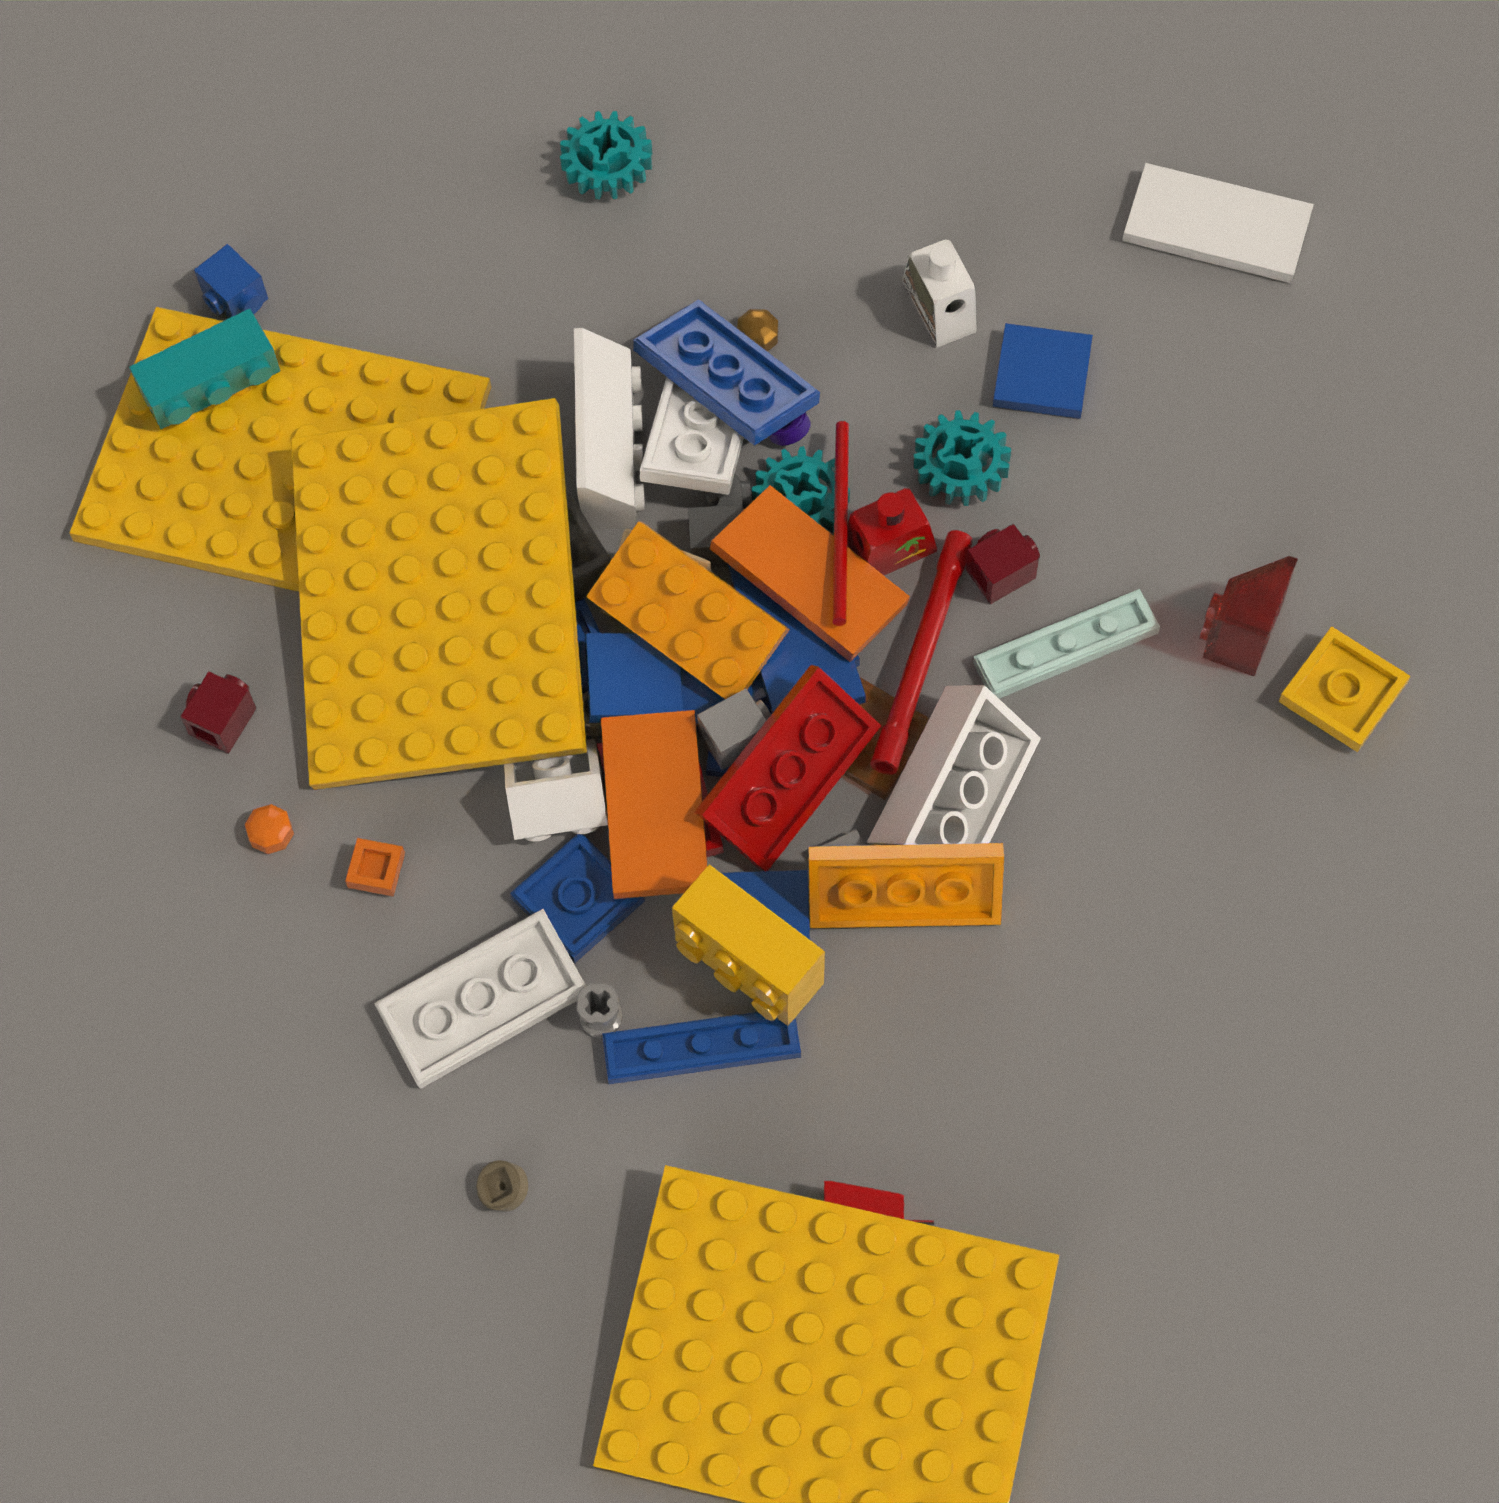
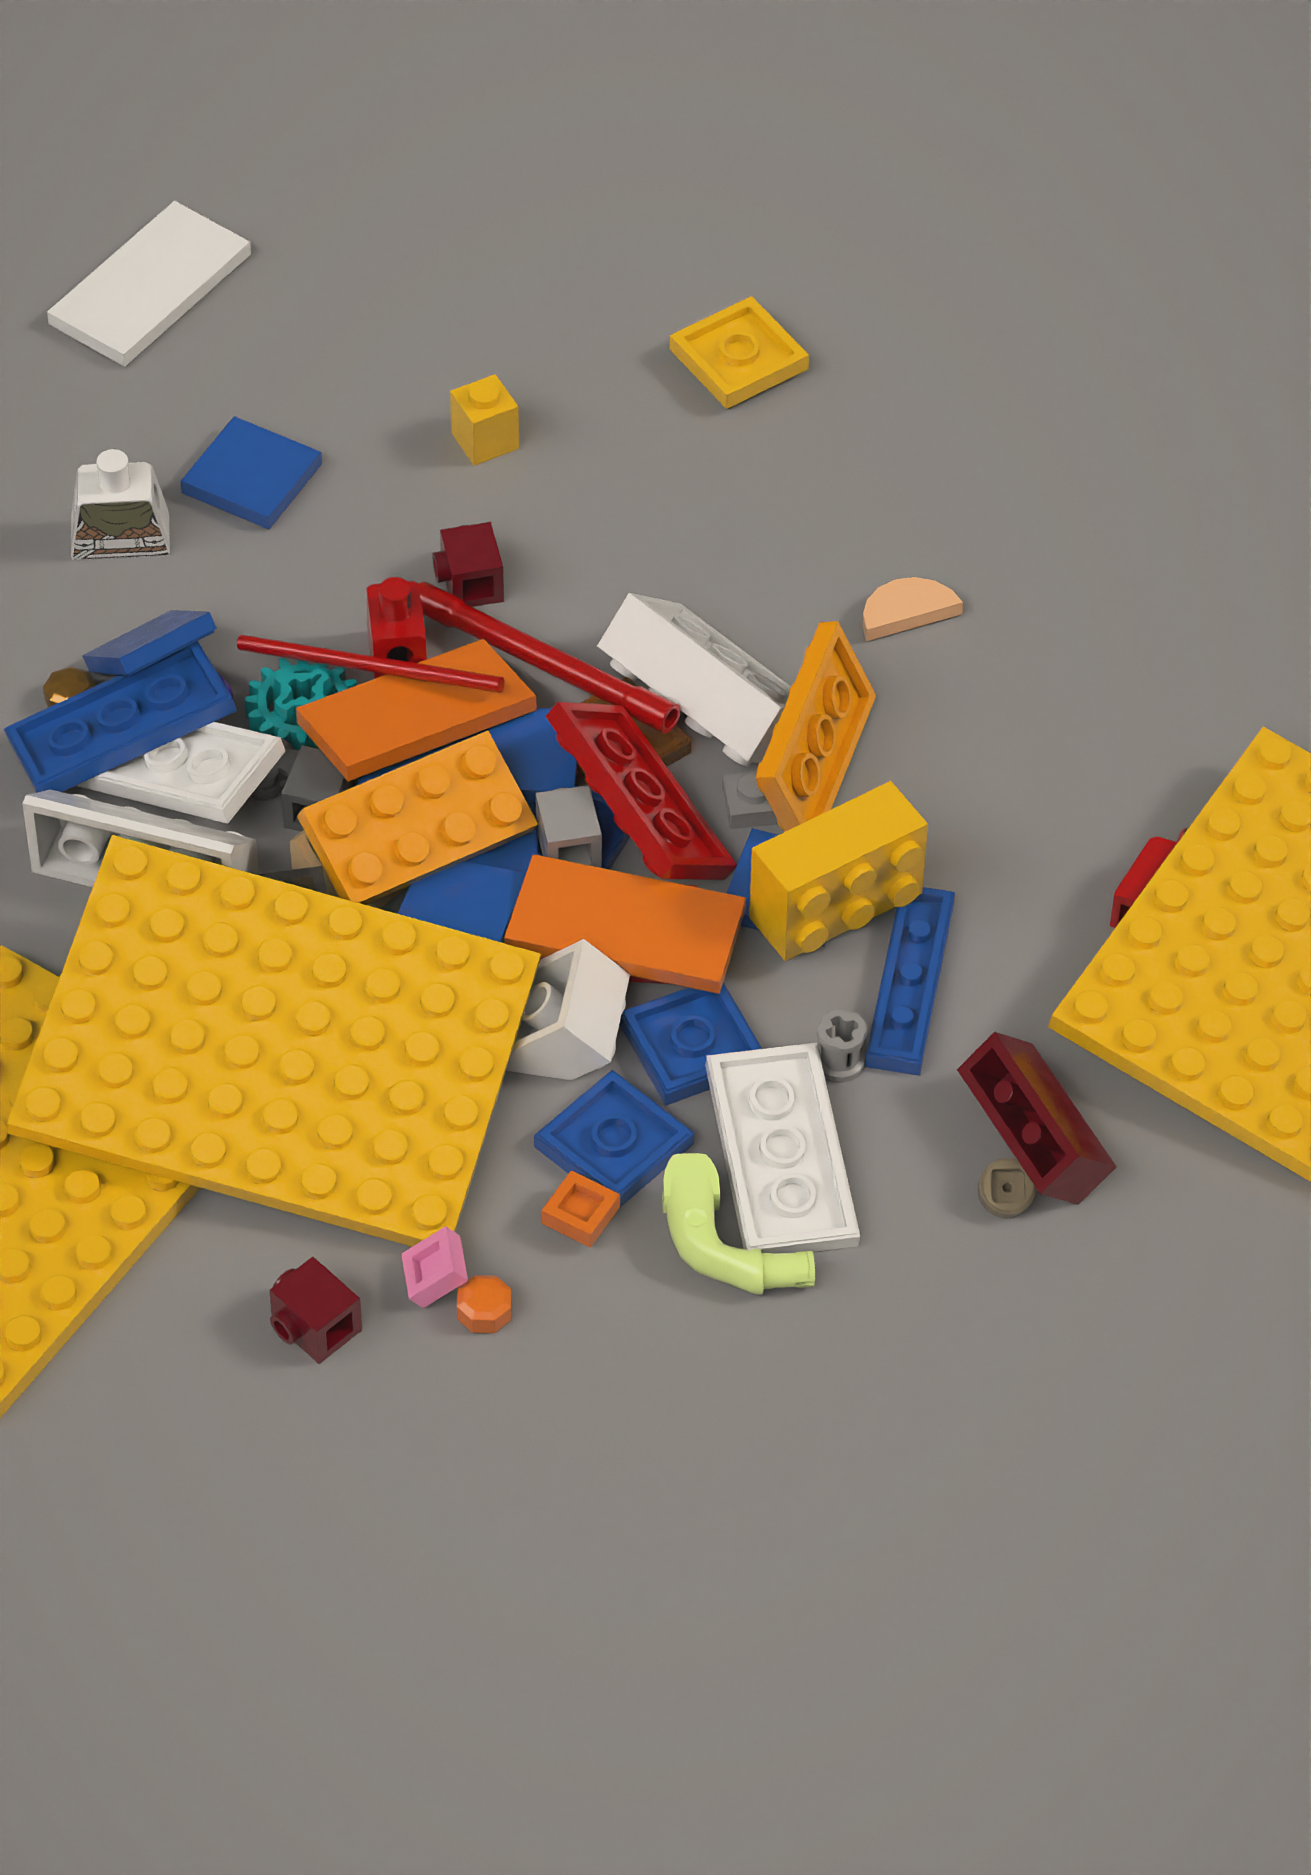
camera: 75 degrees left, 15 degrees down
(283, 781) = (434, 1267): none -> bright pink plate
(409, 943) = (689, 1201): none -> yellowish green piece
(458, 870) = (614, 1137): none -> blue tile
(566, 1186) = (1036, 1118): none -> dark red brick
(811, 361) = (150, 642): none -> blue tile
(960, 462) = (303, 565): teal gear -> none
(1066, 644) = (584, 551): light aqua tile -> none
(1111, 916) = (908, 605): none -> light nougat tile
(1165, 516) = (484, 419): none -> yellow brick
(1245, 615) = (642, 382): clear red slope -> none

